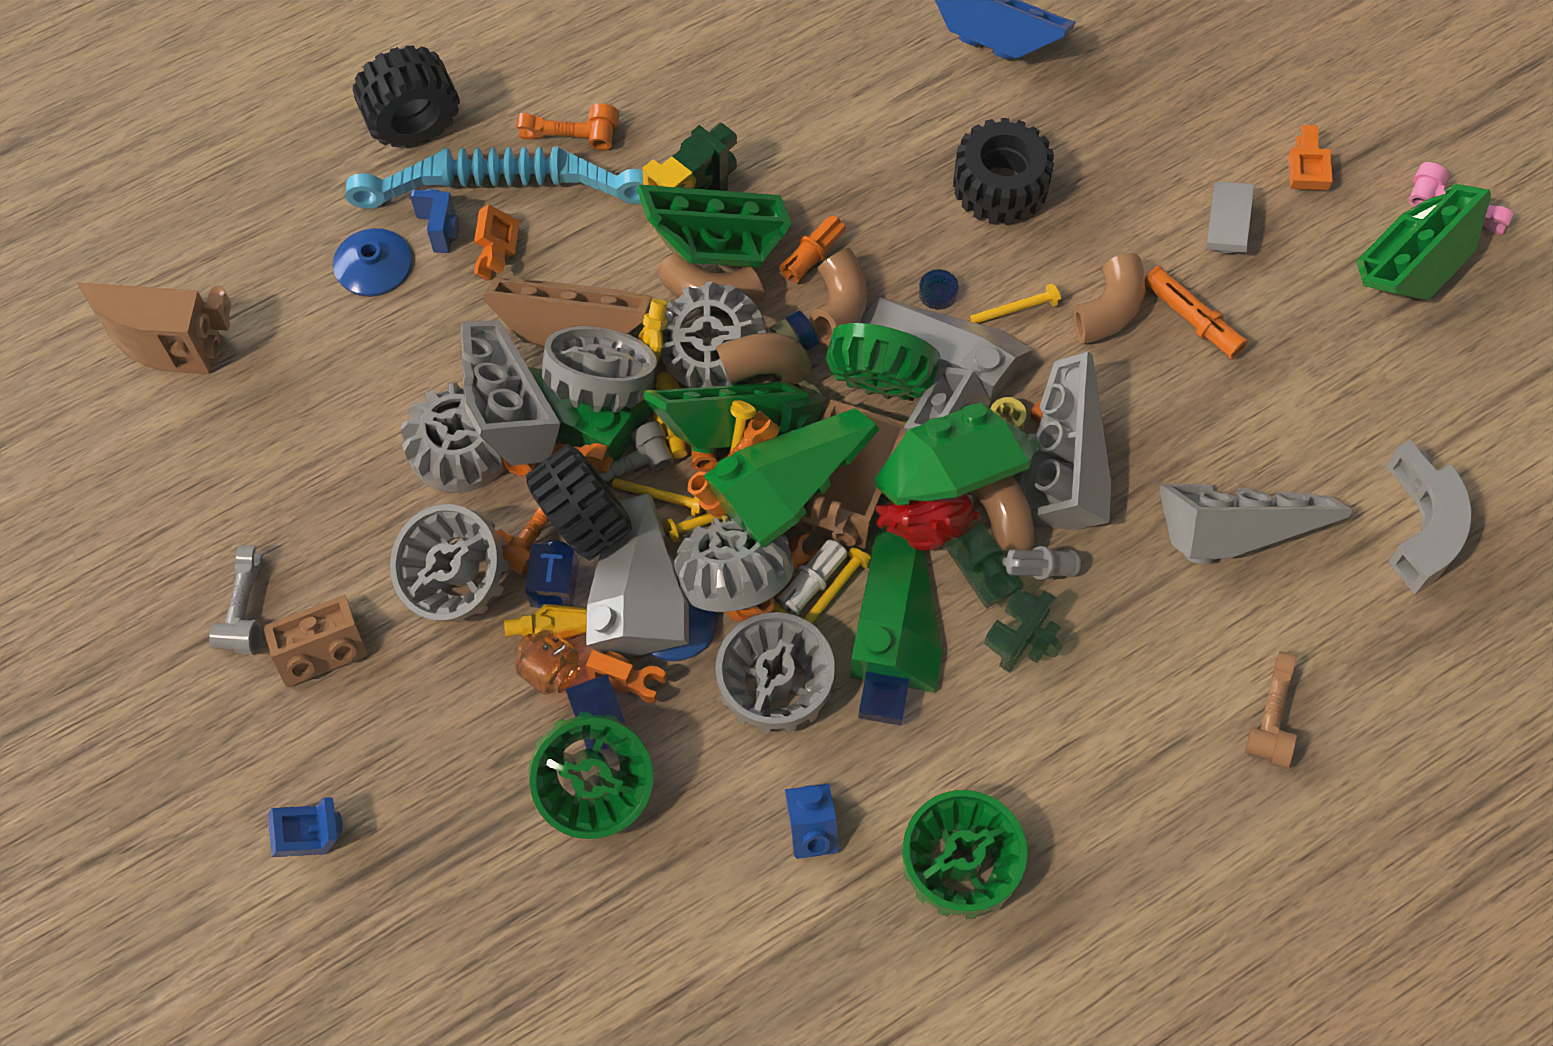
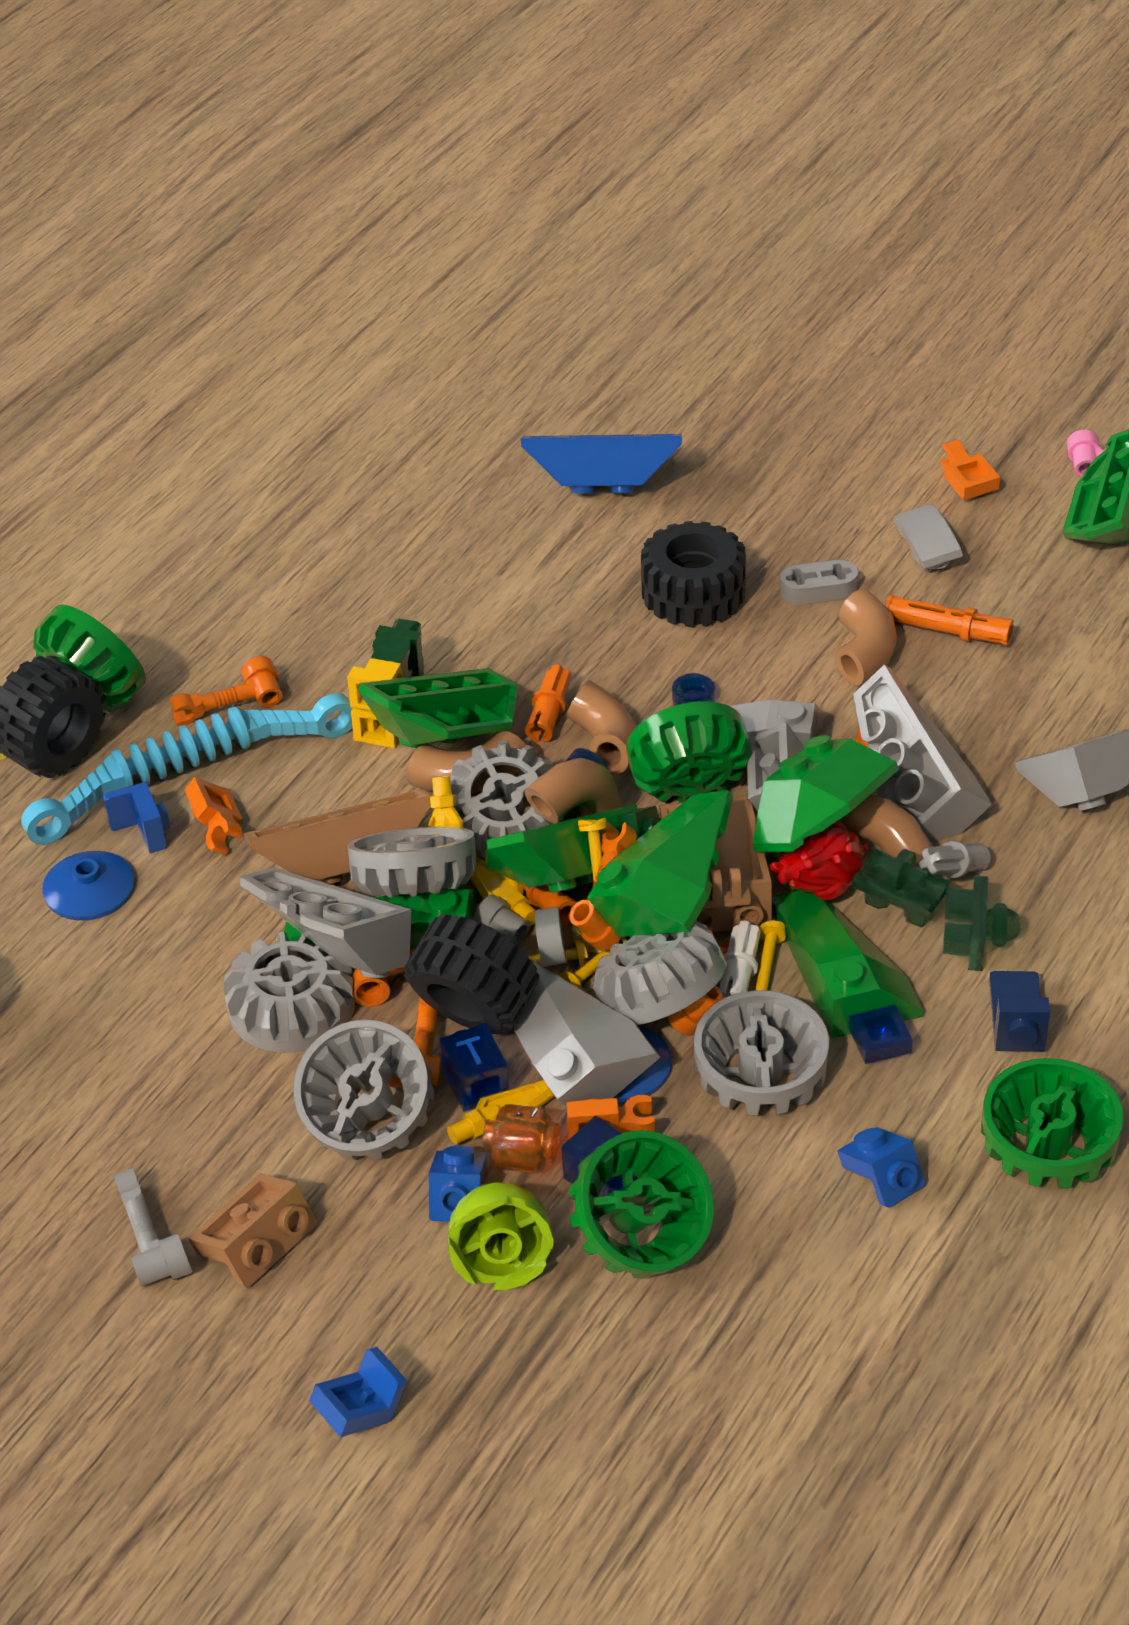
camera: 25 degrees left, 20 degrees down
(462, 55) = (93, 651): none -> green gear
(478, 740) = (499, 1236): none -> lime cylinder
(481, 673) = (452, 1177): none -> blue bracket
(670, 486) = (550, 936): none -> light grey beam
(1008, 729) = (1018, 1011): none -> dark blue bracket
(1052, 295) = (805, 657): yellow piece -> none
(1110, 222) = (818, 582): none -> light grey beam

